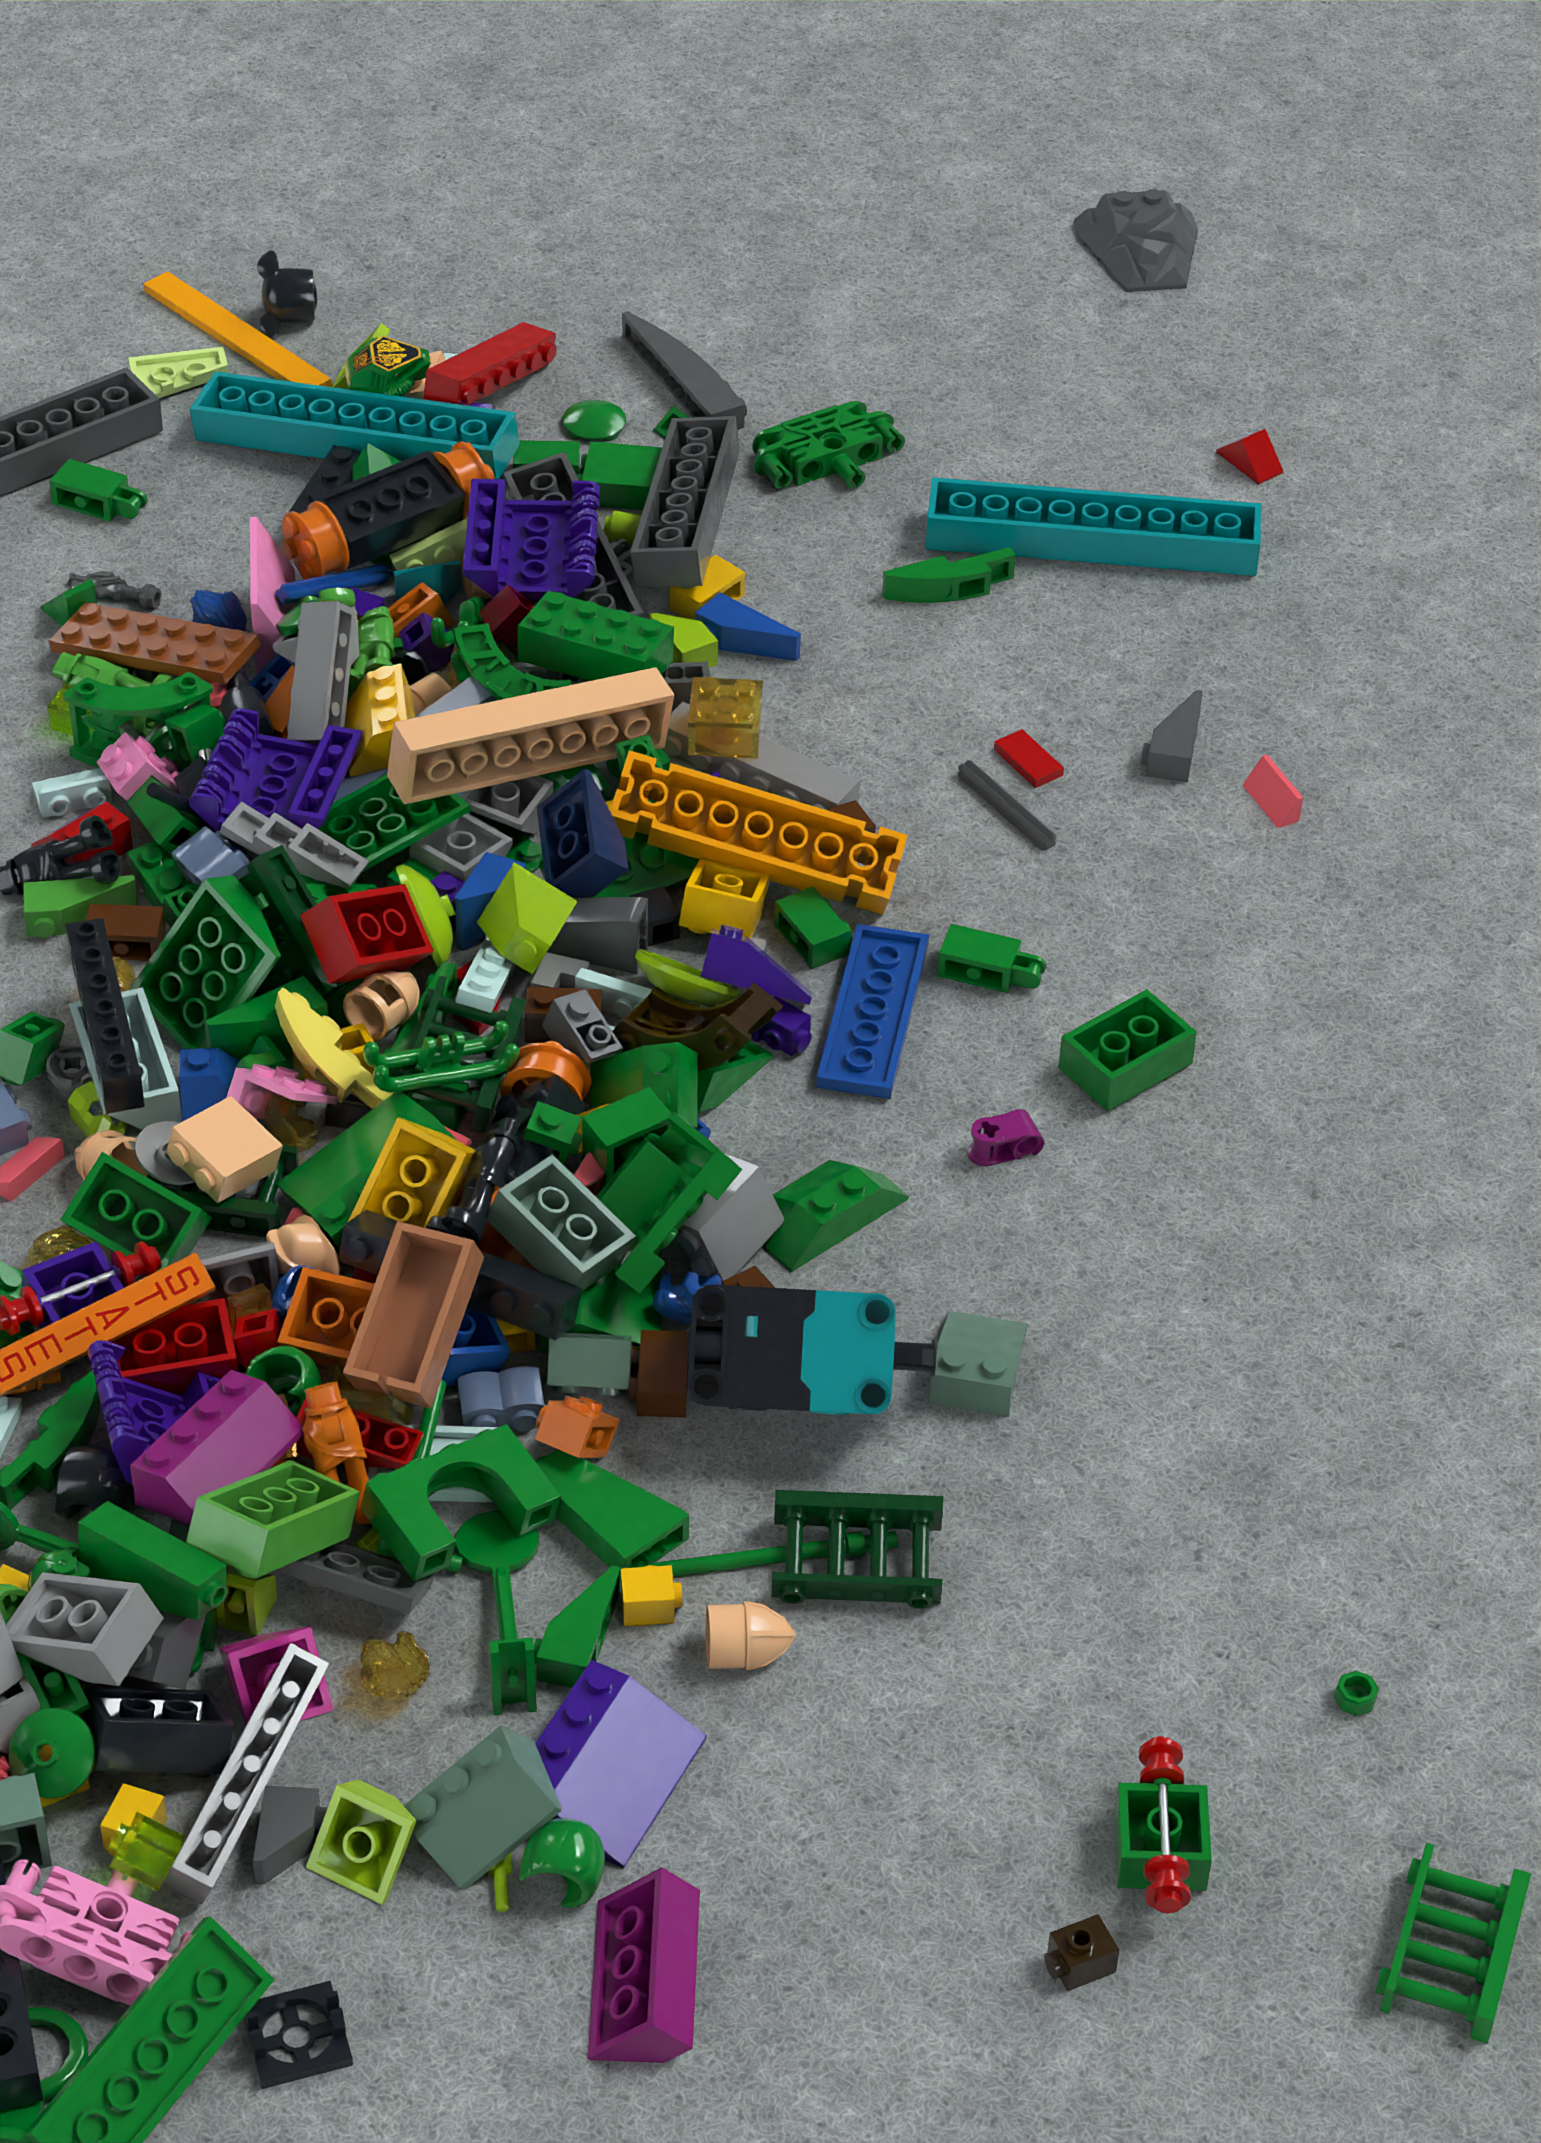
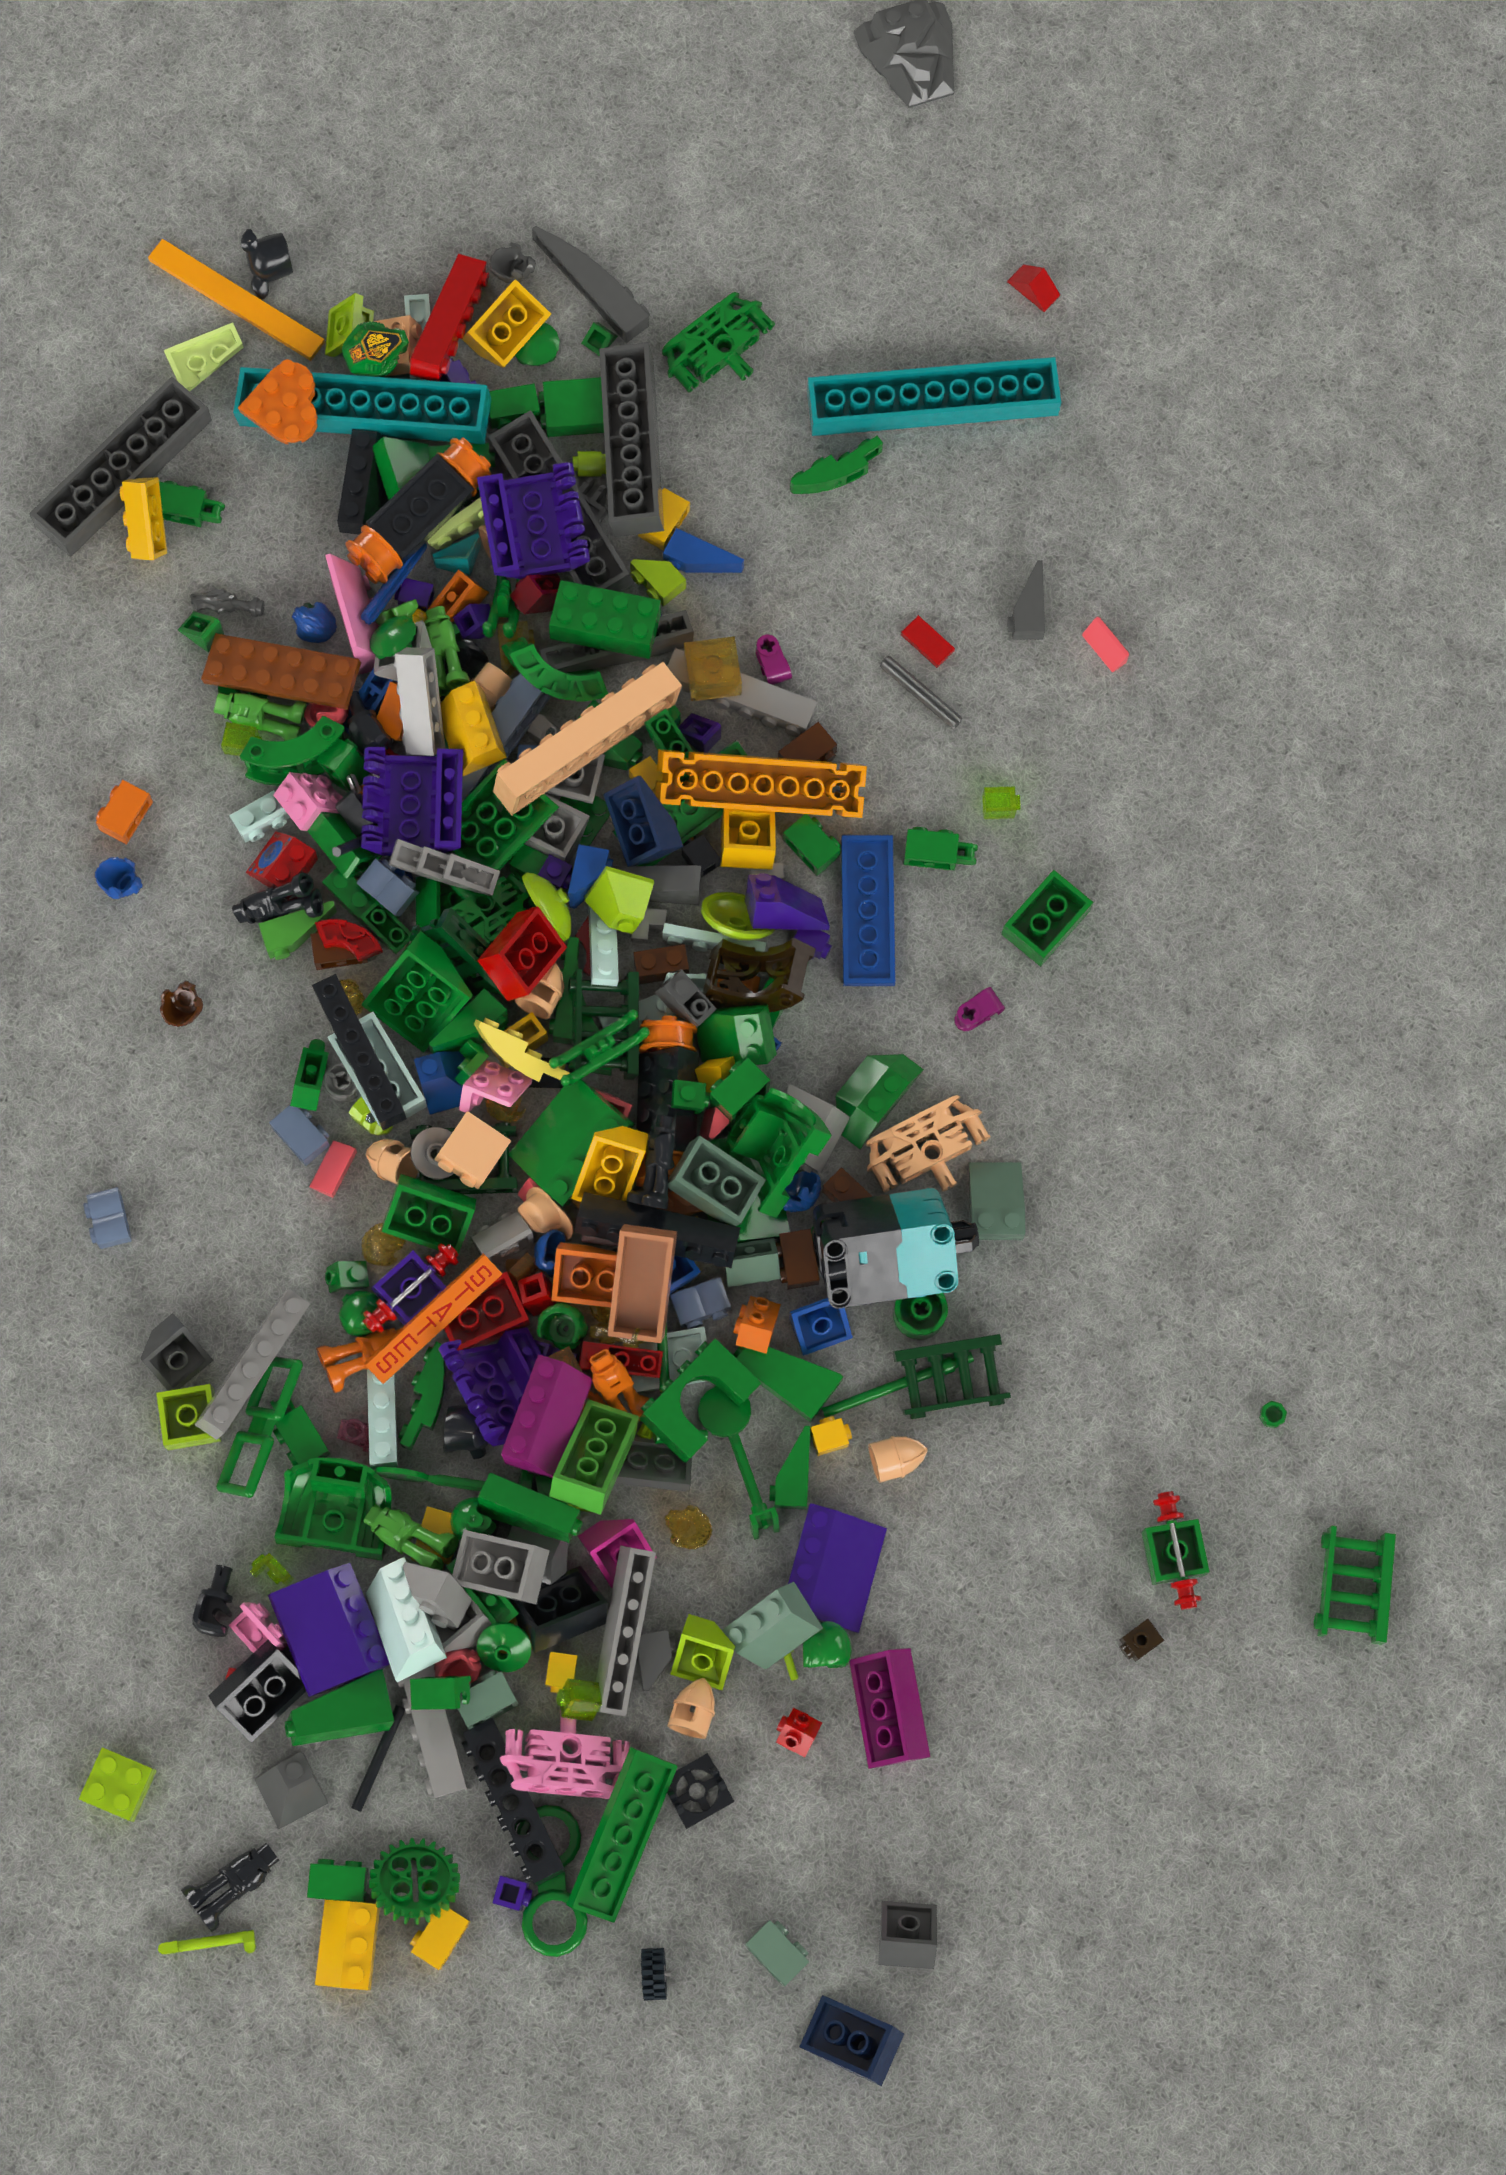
camera: 15 degrees left, 30 degrees up
(39, 480) = (143, 518): none -> yellow slope
(134, 908) = (348, 936): none -> red tile
(254, 401) = (283, 403): none -> orange plate
(322, 1912) = (688, 1723): none -> light nougat helmet
(485, 1972) = (798, 1731): none -> red brick
(559, 387) = (506, 325): none -> yellow slope
(587, 345) = (510, 264): none -> dark grey hair
(673, 1451) = (819, 1326): none -> blue slope
(812, 736) = (772, 663): none -> magenta piece
(829, 1455) = (924, 1325): none -> green brick
(902, 1261) = (919, 1129): none -> light nougat piece
(1089, 925) = (1000, 802): none -> clear neon green brick

